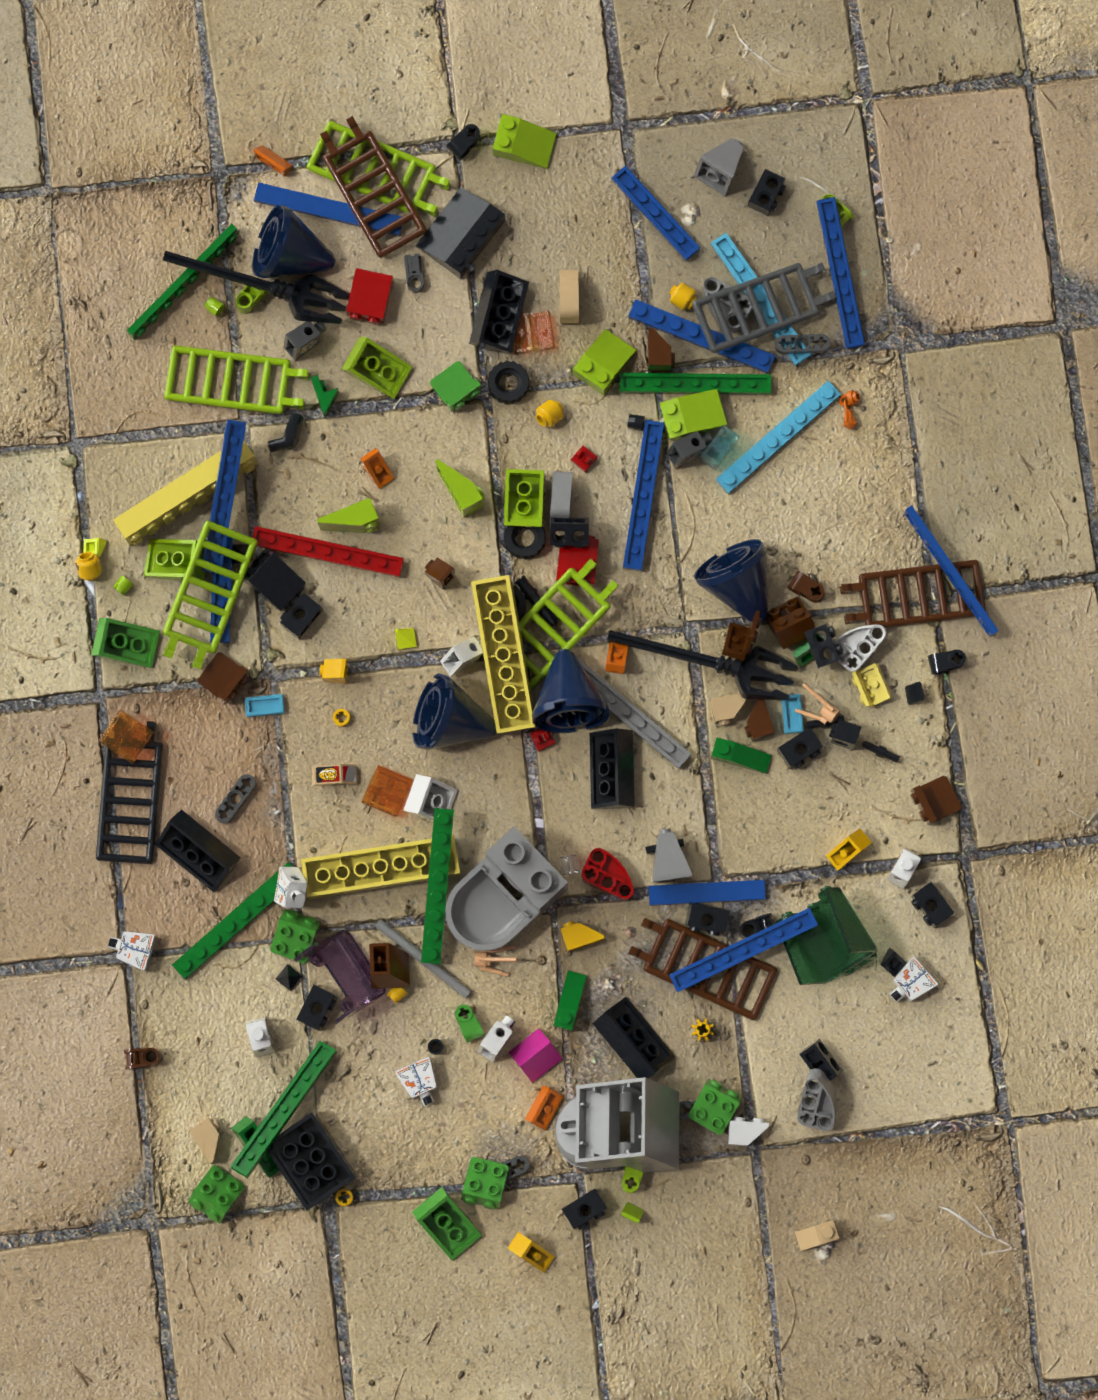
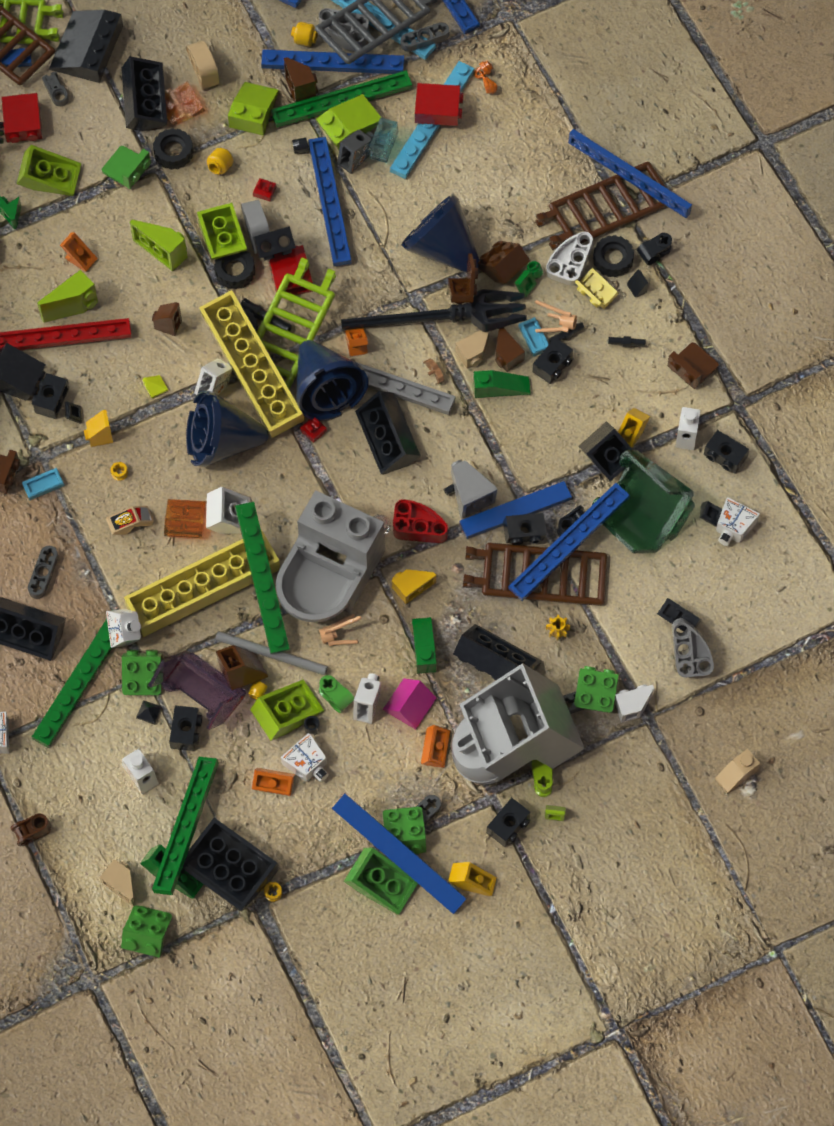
camera: 20 degrees left, 15 degrees down
(317, 640) = (73, 412): none -> black slope
(381, 1088) = (273, 781): none -> orange slope
(417, 1022) = (285, 709): none -> lime slope
(470, 1207) = (399, 853): none -> blue tile
(682, 717) = (434, 370): none -> medium nougat piece
(787, 428) = (438, 104): none -> red brick
(804, 585) = (504, 229): reddish brown piece -> none
(814, 867) = (605, 449): none -> black slope
(818, 647) = (536, 266): black brick -> none
(844, 734) = (588, 333): black brick -> none
(906, 640) = (620, 244): none -> black tyre

